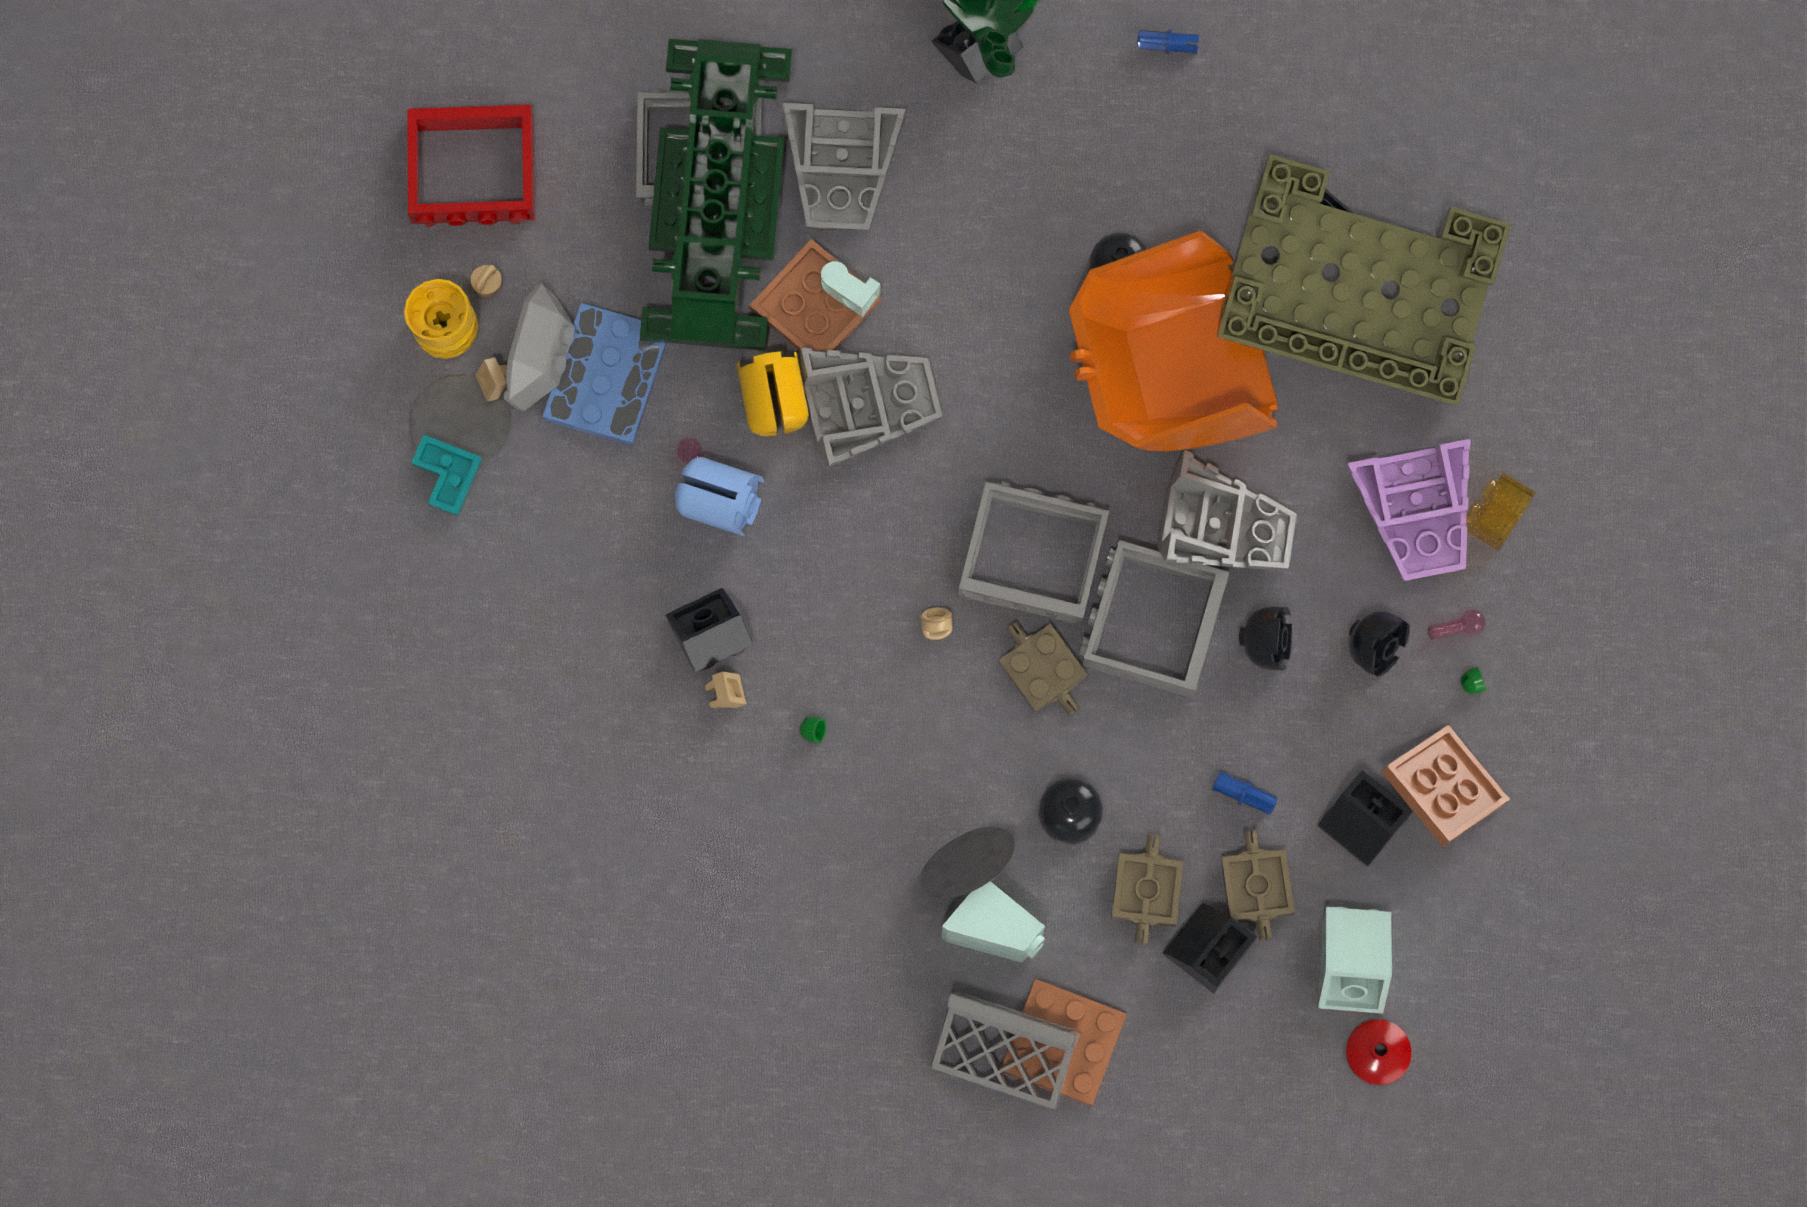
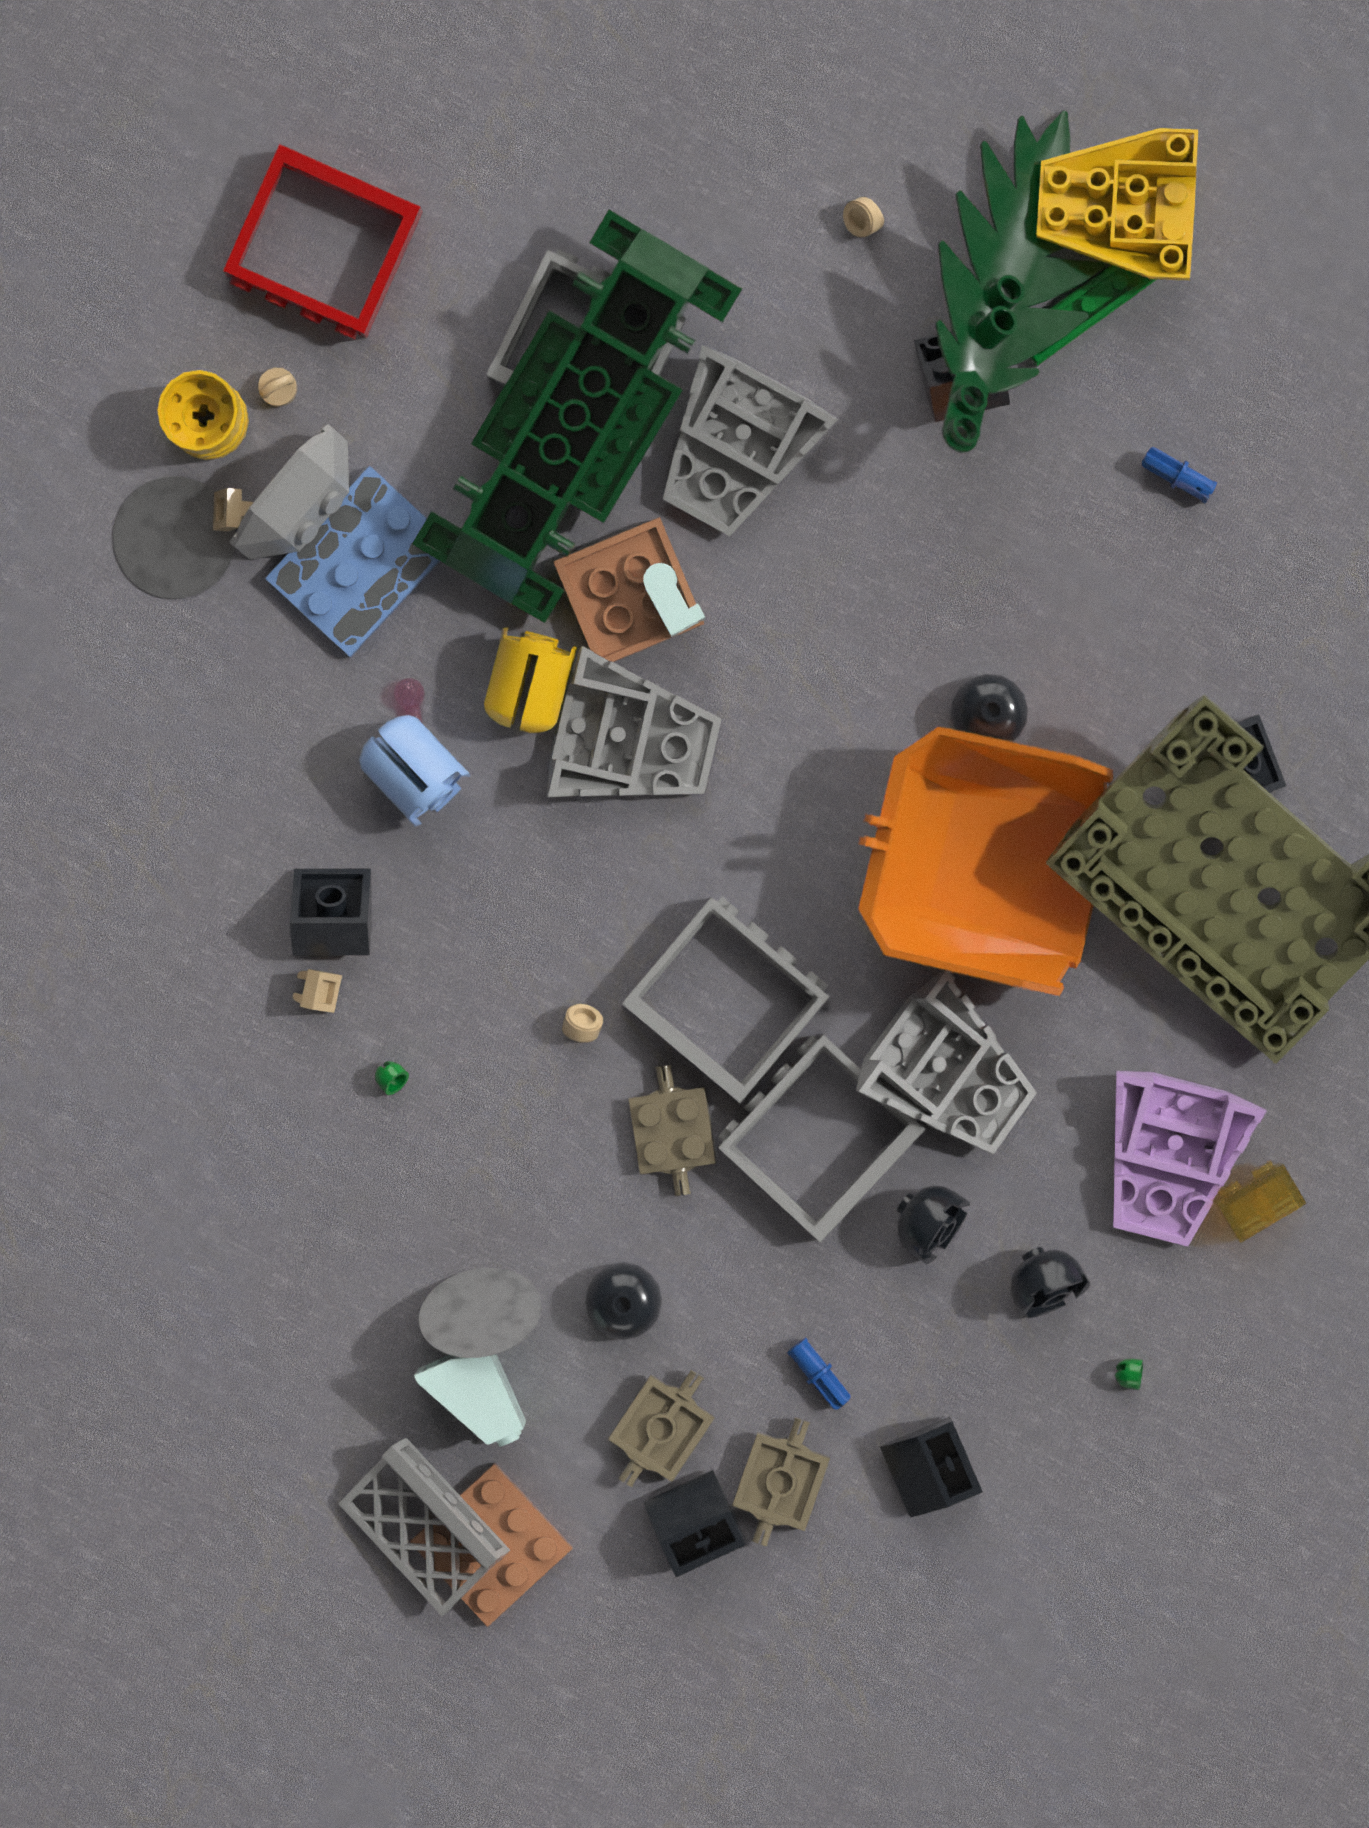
camera: 30 degrees right, 15 degrees up
(455, 472) = (141, 594): teal plate -> none
(1355, 960) = (843, 1611): light aqua slope -> none
(1370, 1066) = (818, 1696): red dish -> none
(1445, 785) = (1035, 1477): nougat plate -> none
(1471, 622) = (1164, 1304): clear pink bar -> none

